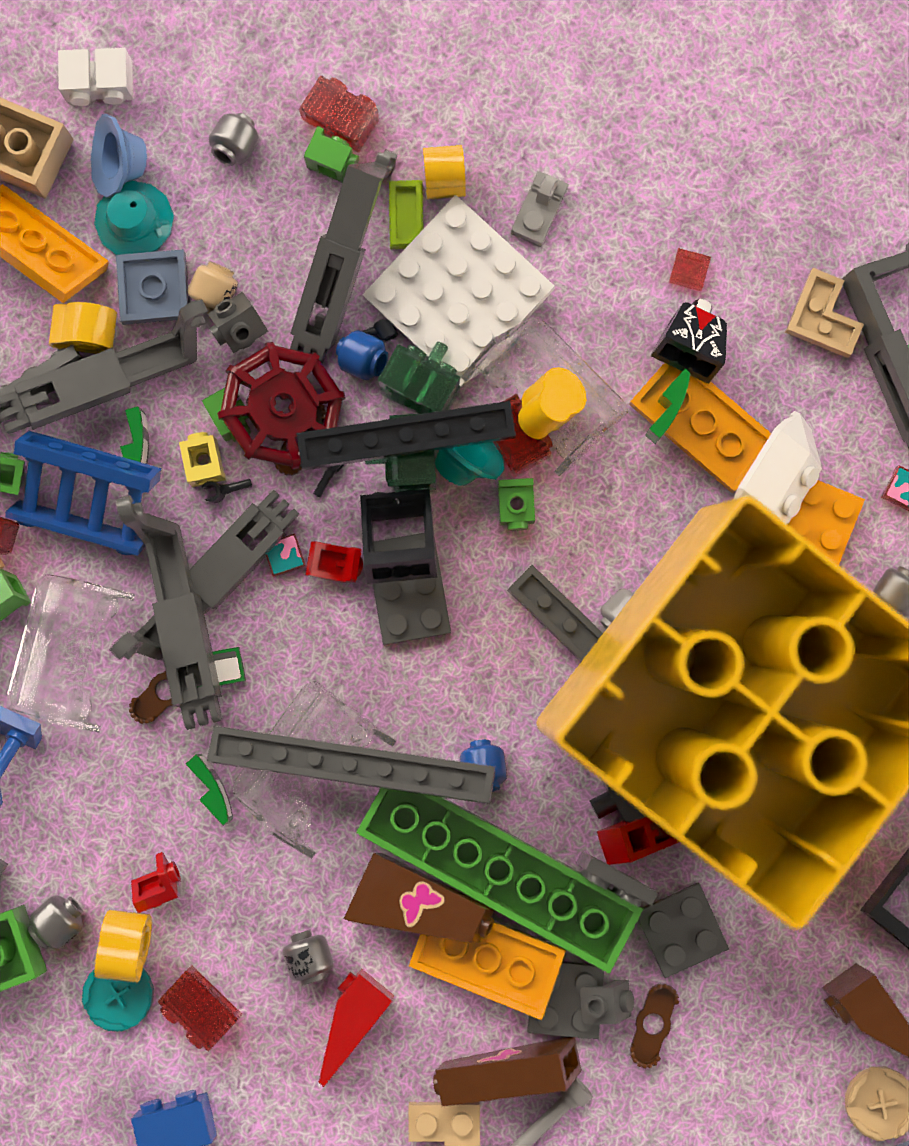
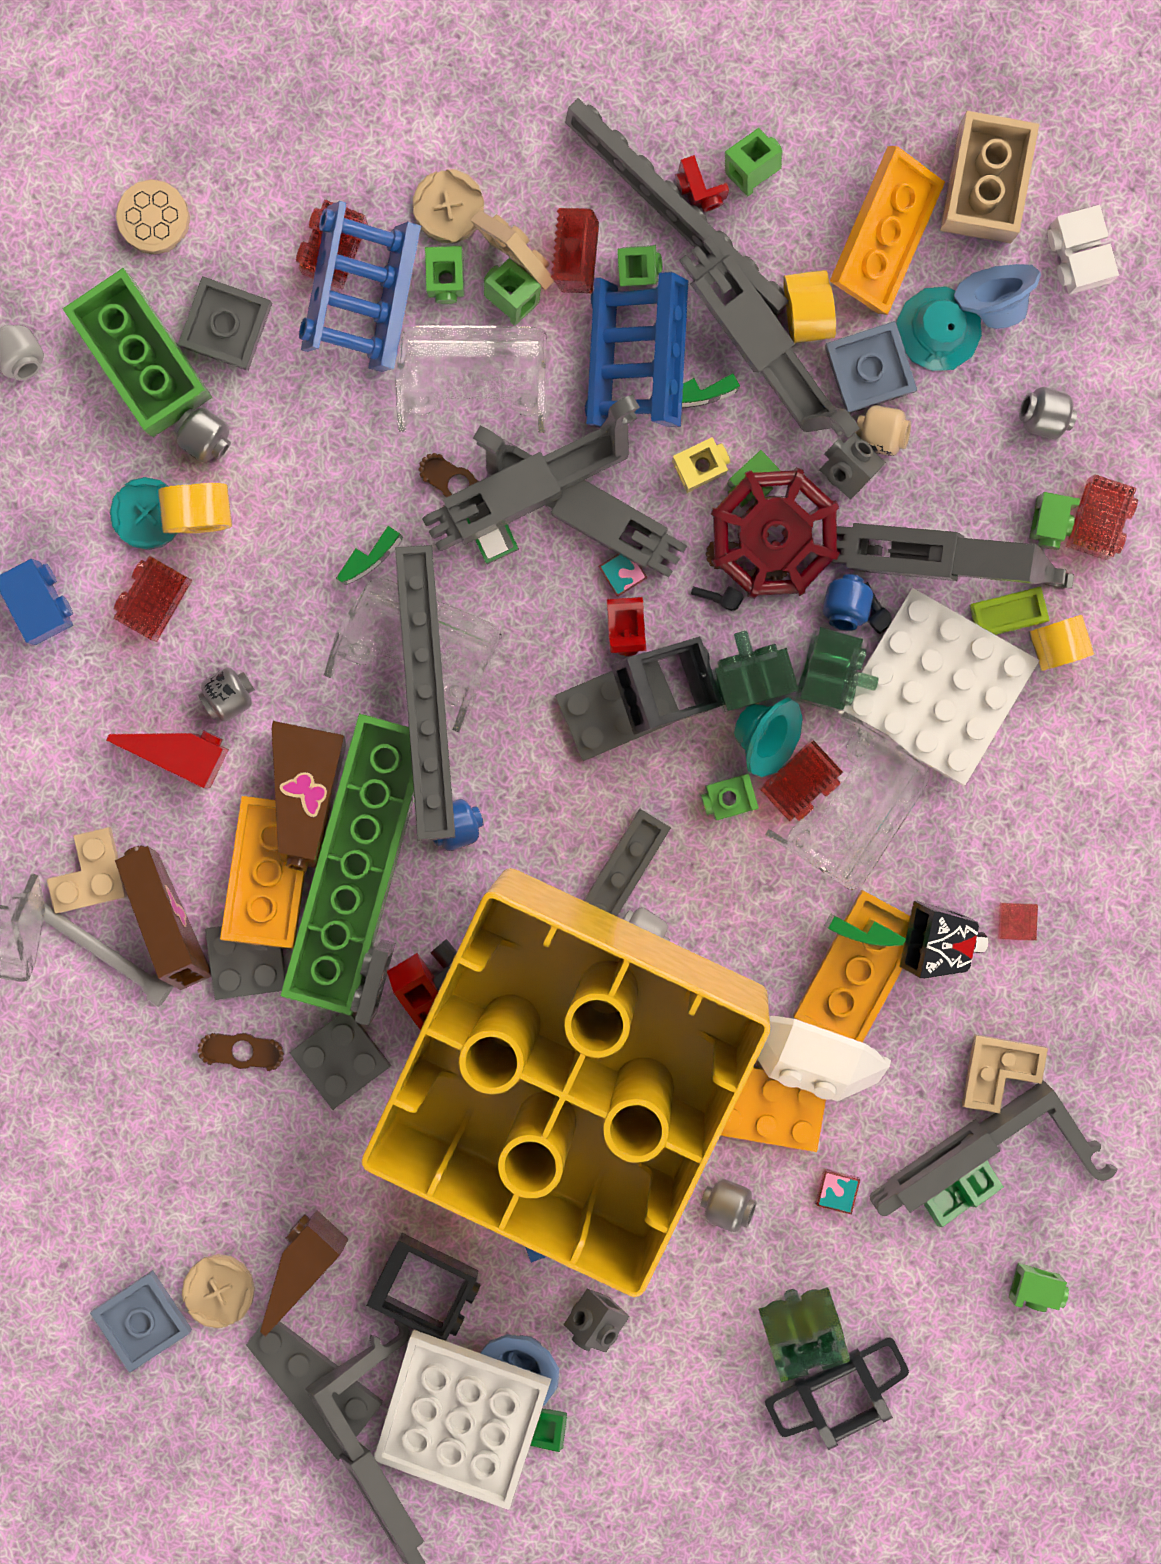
camera: 75 degrees right, 5 degrees up
(156, 887) = (260, 526): red bracket -> none
(225, 489) = (676, 494): black hand -> none
(406, 435) = (768, 670): black plate -> none
(539, 208) = (1047, 750): light grey hinge -> none
(551, 402) = (840, 809): yellow piece -> none
(606, 1003) = (251, 1000): dark grey bracket -> none

